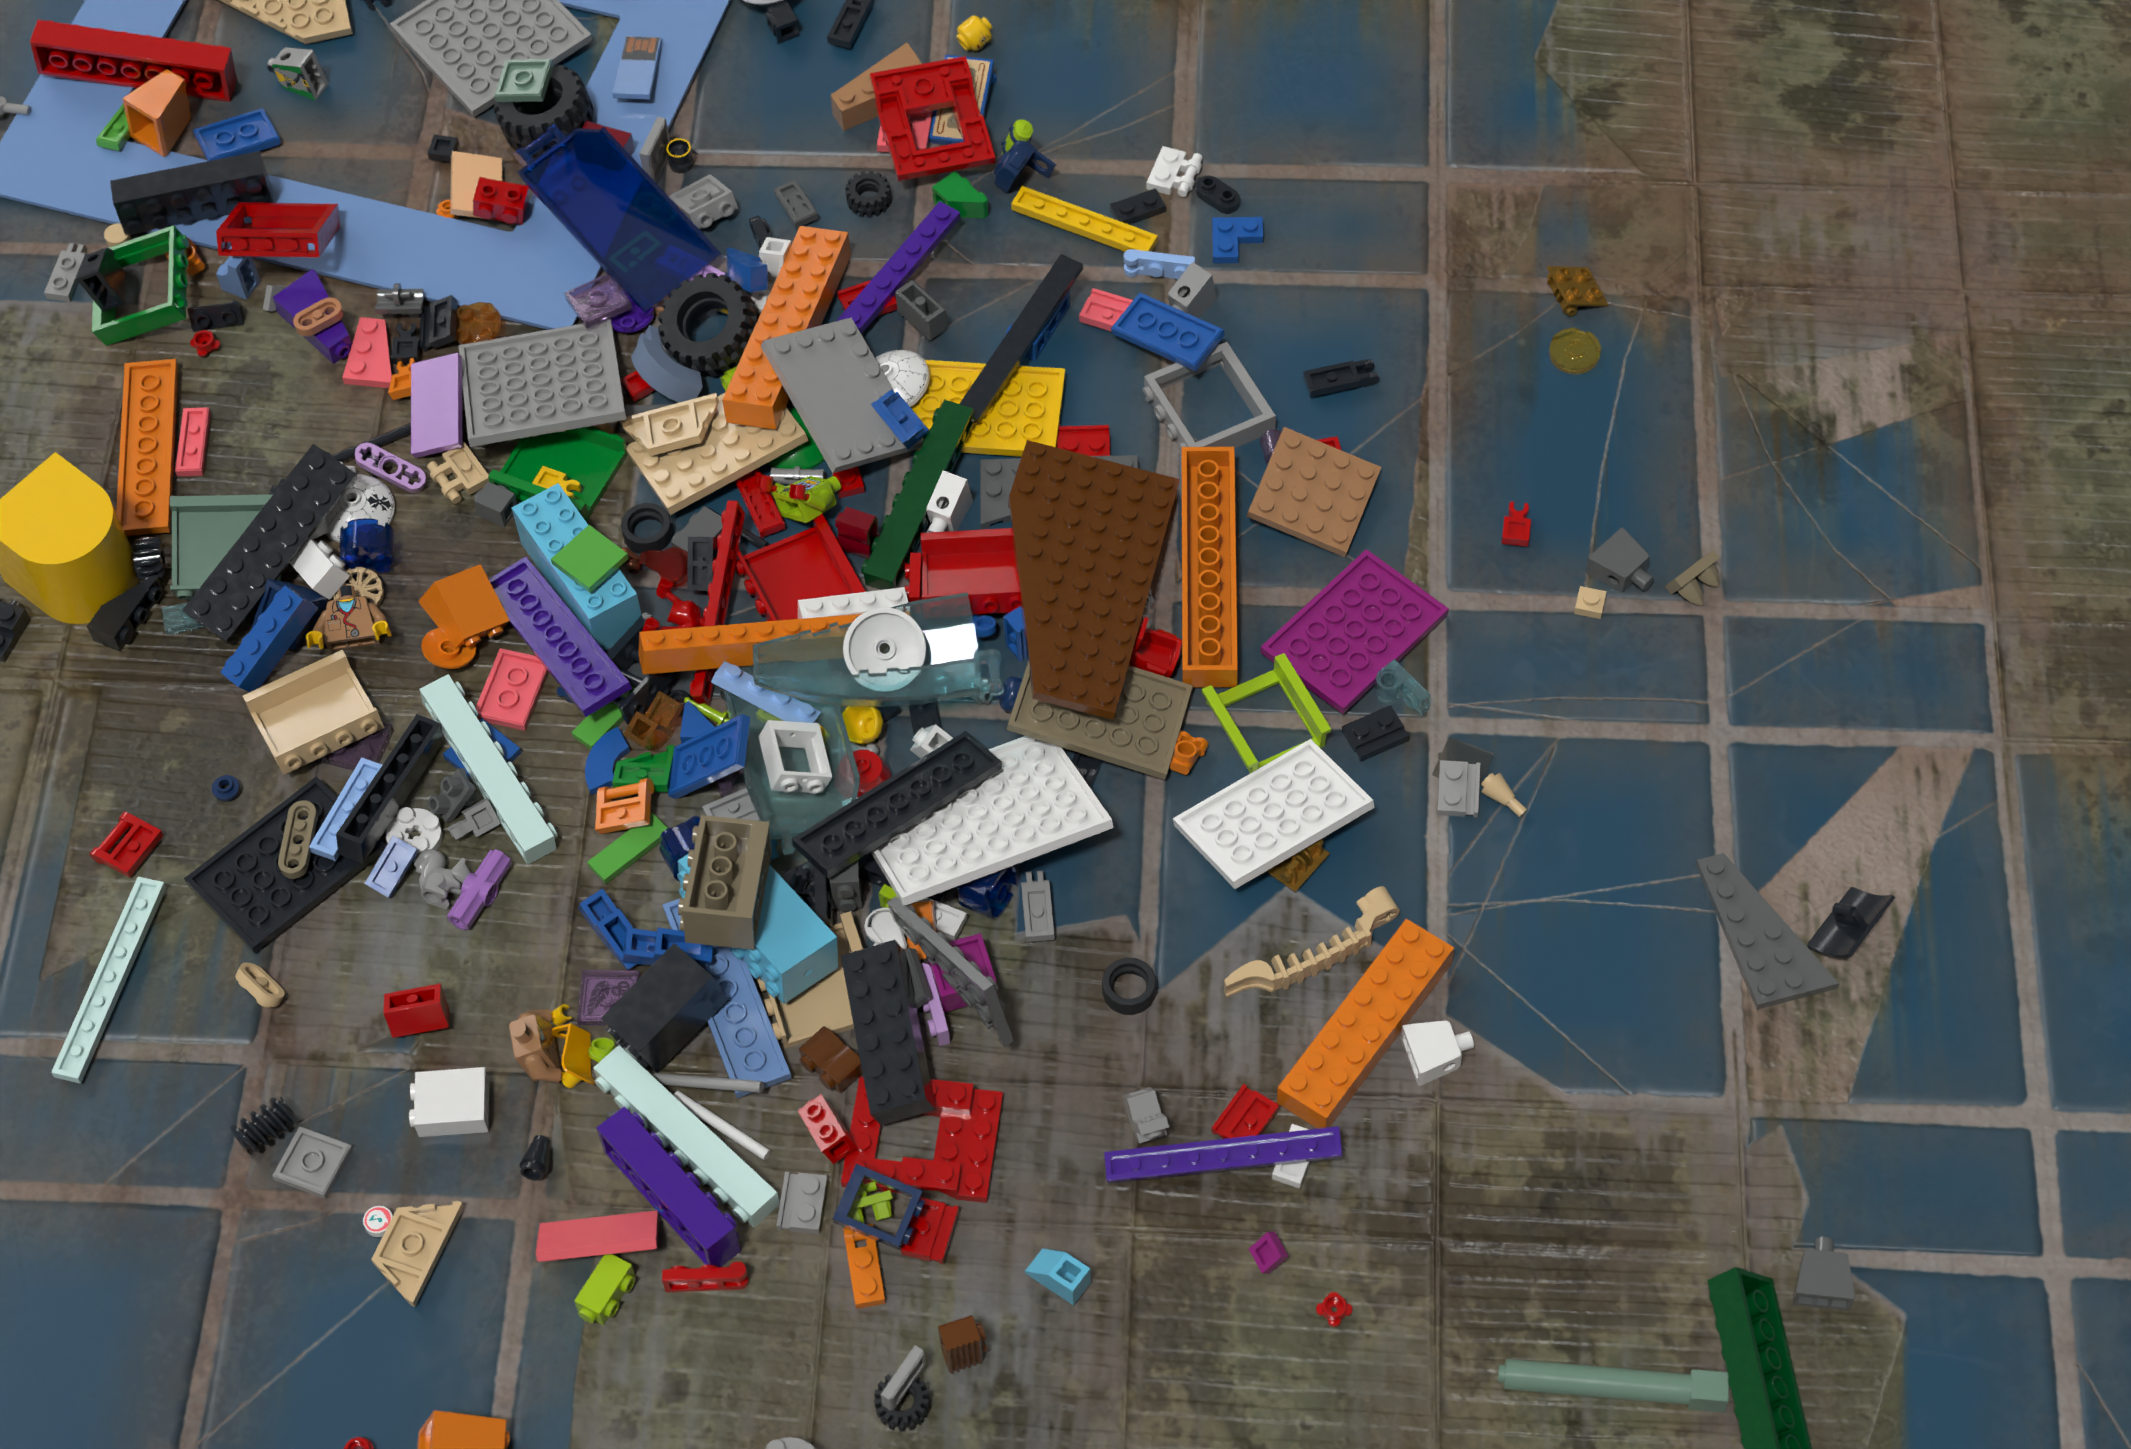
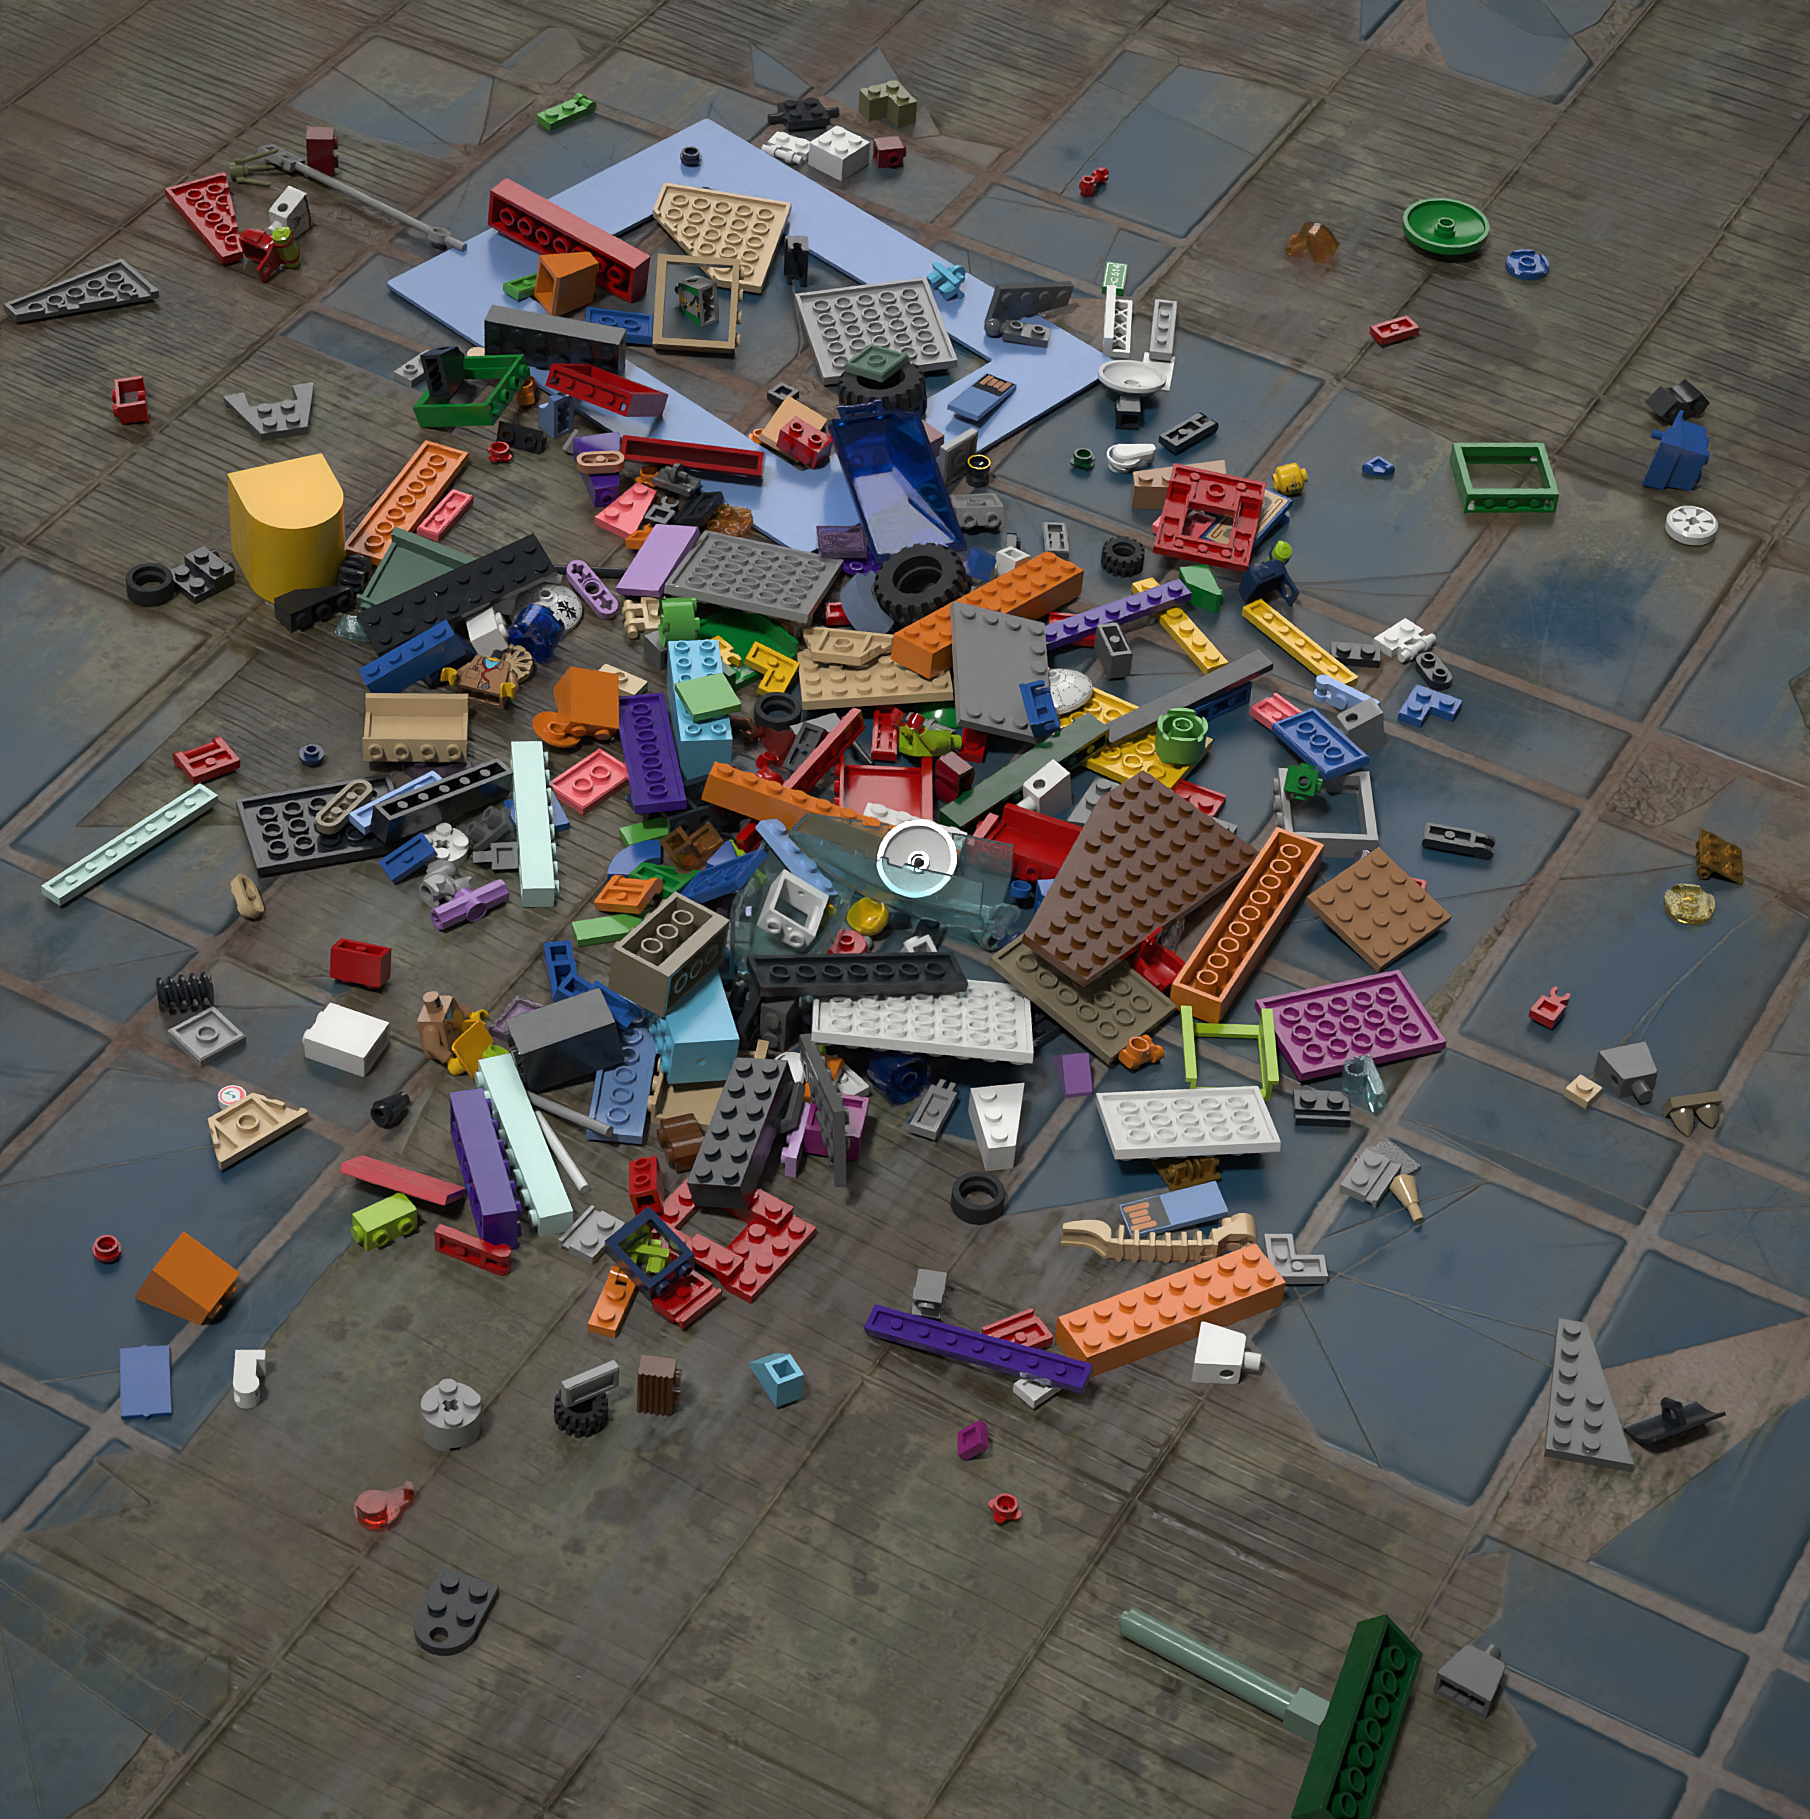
camera: 20 degrees right, 15 degrees down
(343, 59) = (691, 344): none -> tan window
(366, 304) = (646, 475): none -> orange plate
(403, 267) = (693, 456): none -> red brick
(467, 557) = (627, 683): none -> tan plate
(505, 478) = (677, 620): none -> bright green brick
(617, 476) = (775, 666): none -> yellow plate
(768, 95) = (1083, 458): none -> dark green plate
(811, 73) = (1129, 455): none -> white piece
(969, 254) = (1185, 633): none -> yellow plate
(1040, 384) = (1181, 737): none -> bright green brick
(1103, 897) = (995, 1122): none -> white wedge
(1139, 803) = (1074, 1074): none -> medium lavender slope
(1171, 383) = (1295, 775): none -> green brick
(1308, 912) = (1174, 1209): none -> medium blue piece
(1439, 921) = (1292, 1267): none -> light grey plate

